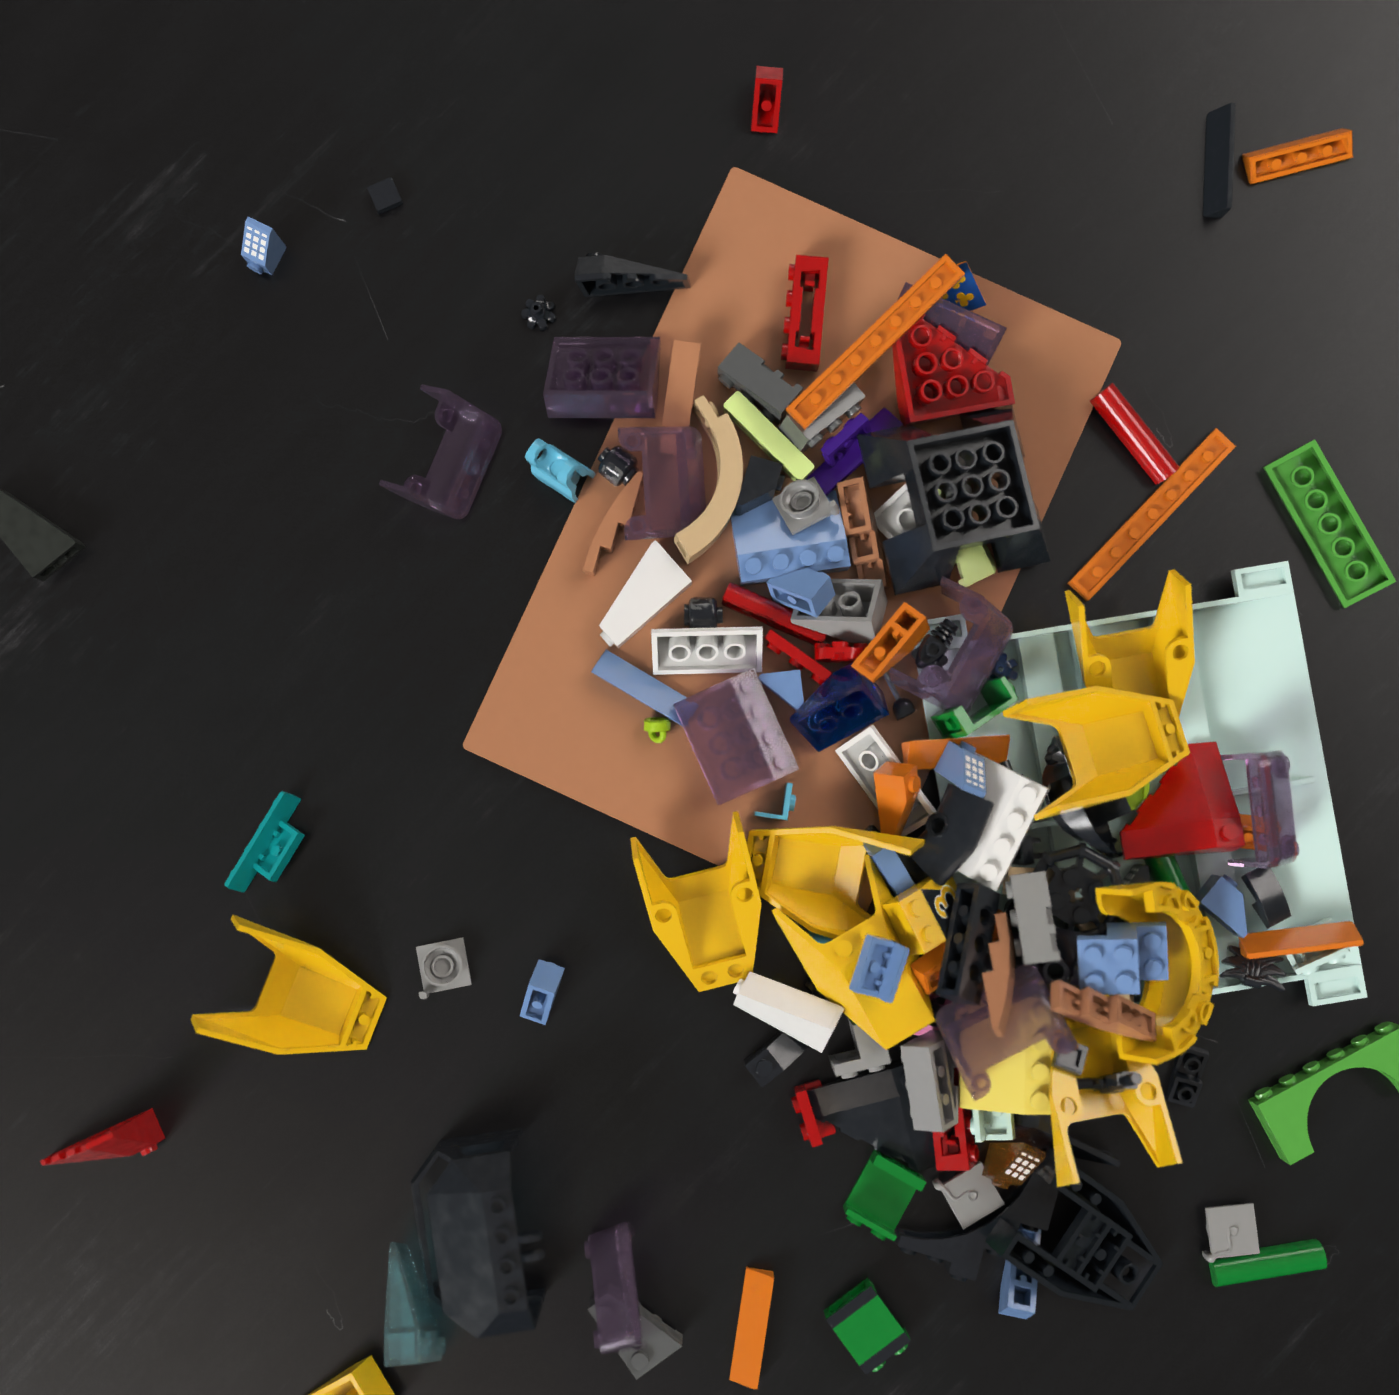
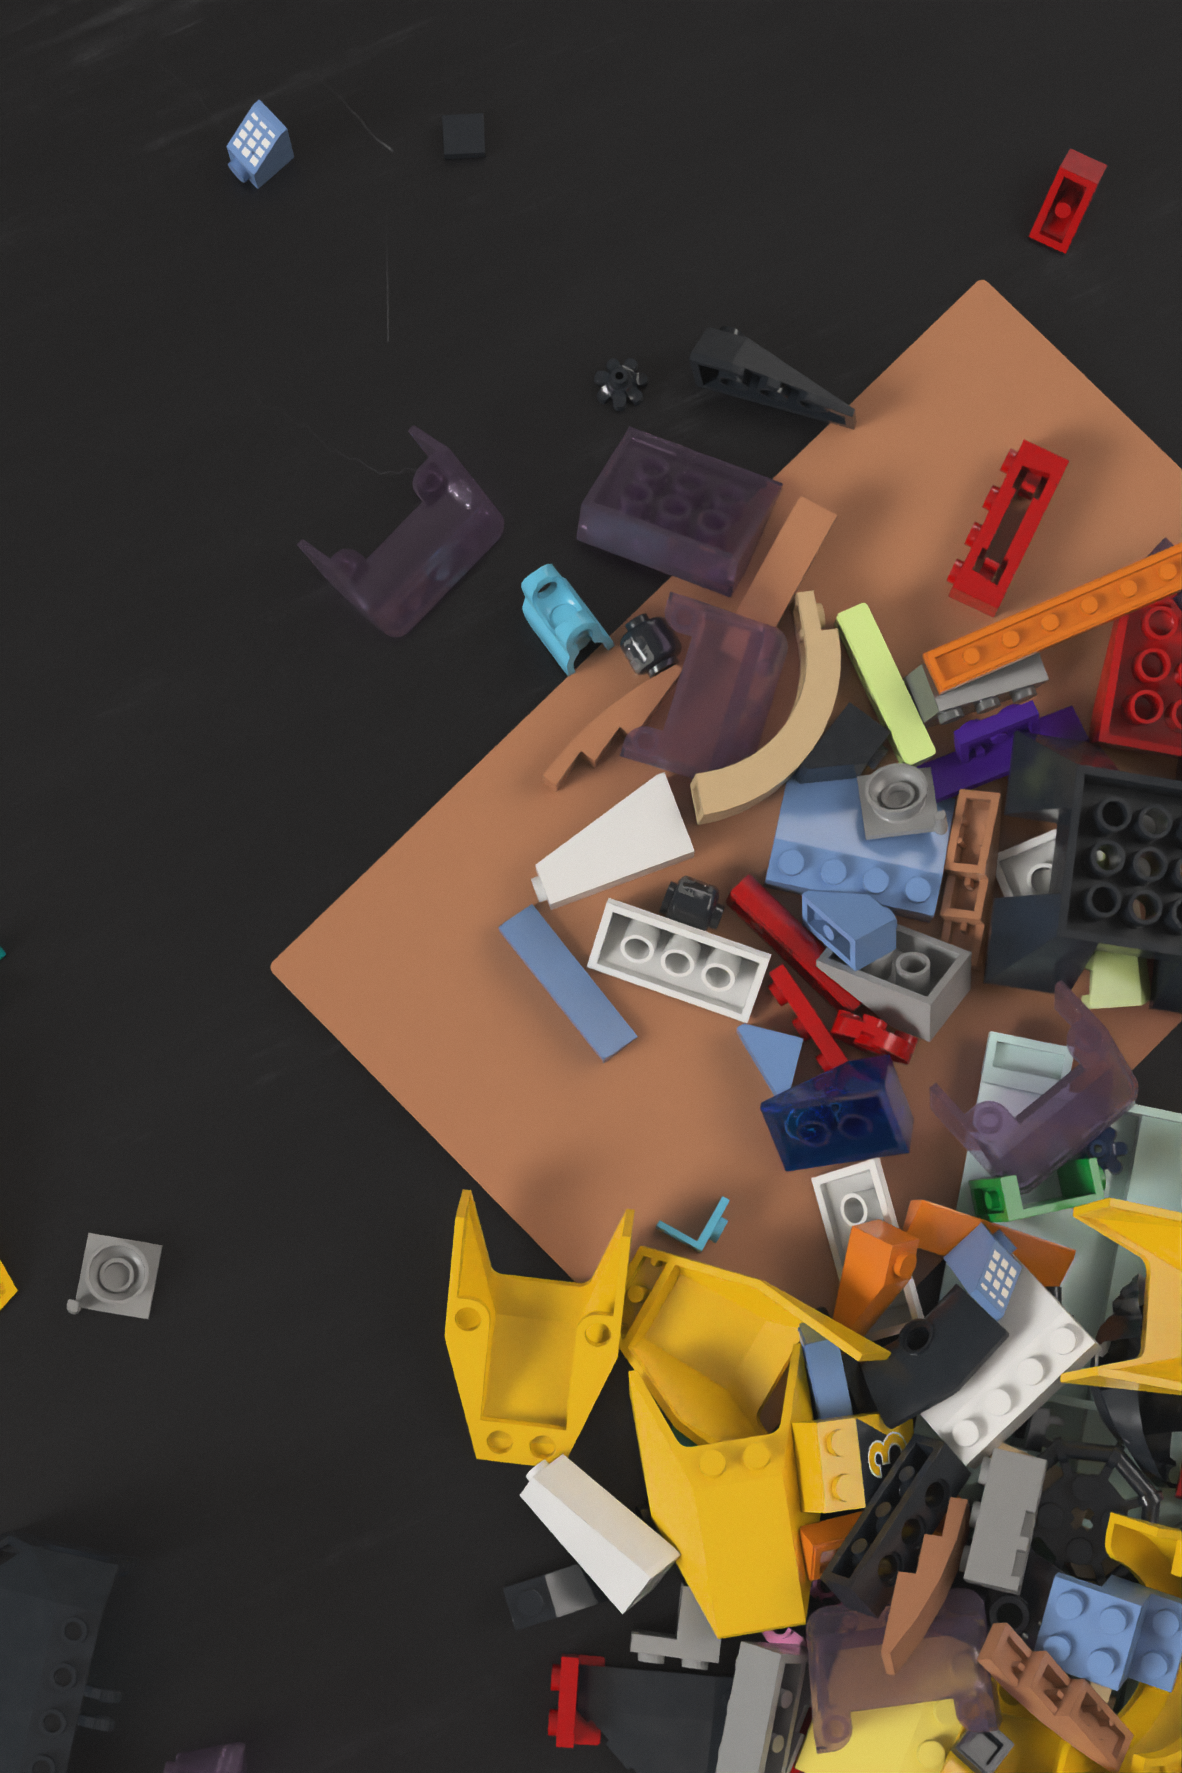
camera: 25 degrees right, 5 degrees down
(541, 991) = (246, 1368): medium blue slope -> none
(657, 724) = (565, 1041): lime tile -> none
(736, 736) = (673, 1101): slope -> none
(758, 383) = (898, 602): dark grey wedge -> none
(879, 968) = (751, 1508): medium blue bracket -> none
(892, 642) = (951, 1048): orange slope -> none
(902, 706) = (933, 1152): black hinge -> none
(933, 648) = (1009, 1080): black piece -> none

